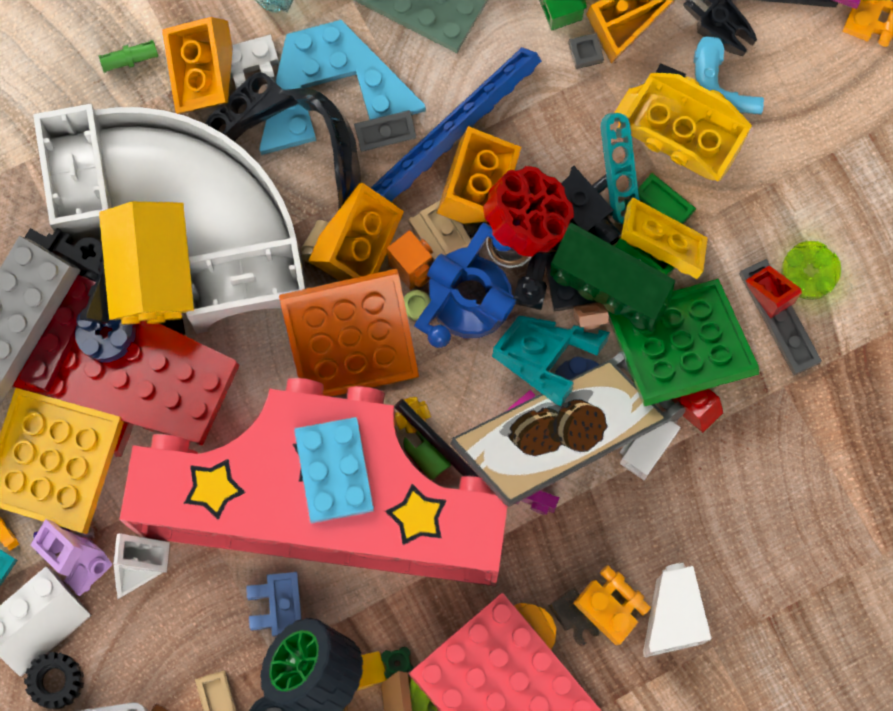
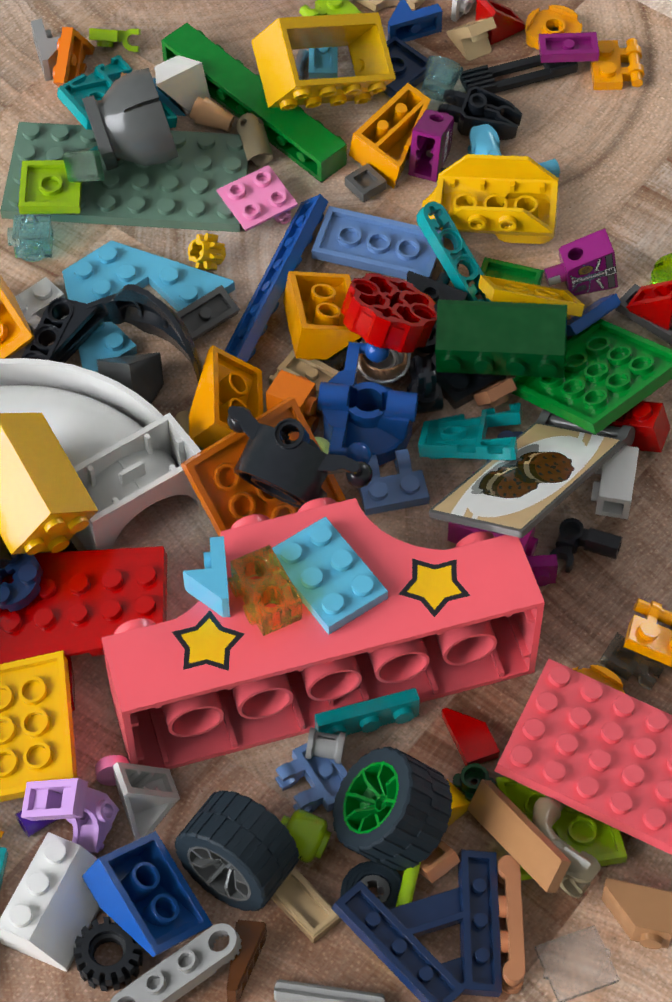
camera: 25 degrees left, 20 degrees down
(98, 653) = (147, 895): none -> blue slope
(119, 527) = (105, 771): none -> bright pink tile
(178, 650) = (237, 850): none -> black wheel
(239, 443) = (211, 583): none -> medium azure slope
(242, 651) = (309, 834): none -> lime head
(282, 465) = (271, 588): none -> clear yellow brick
(290, 587) = (325, 745): none -> light grey bush
(296, 171) = (137, 372): none -> dark grey slope
(340, 571) = (370, 714): none -> teal plate
(357, 340) = (287, 467): none -> black piece
(414, 68) = (206, 252): none -> yellow gear
(415, 623) = (470, 737): none -> red tile
(460, 370) = (394, 491): none -> medium blue plate
(482, 31) = (258, 198): none -> bright pink hinge
(561, 119) = (374, 244): none -> medium blue plate
(589, 478) = (573, 534): none -> black bar
(661, 36) = (431, 132): none -> magenta torso
(713, 273) = (592, 314): none -> blue tile
(730, 223) = (585, 265): none -> magenta torso

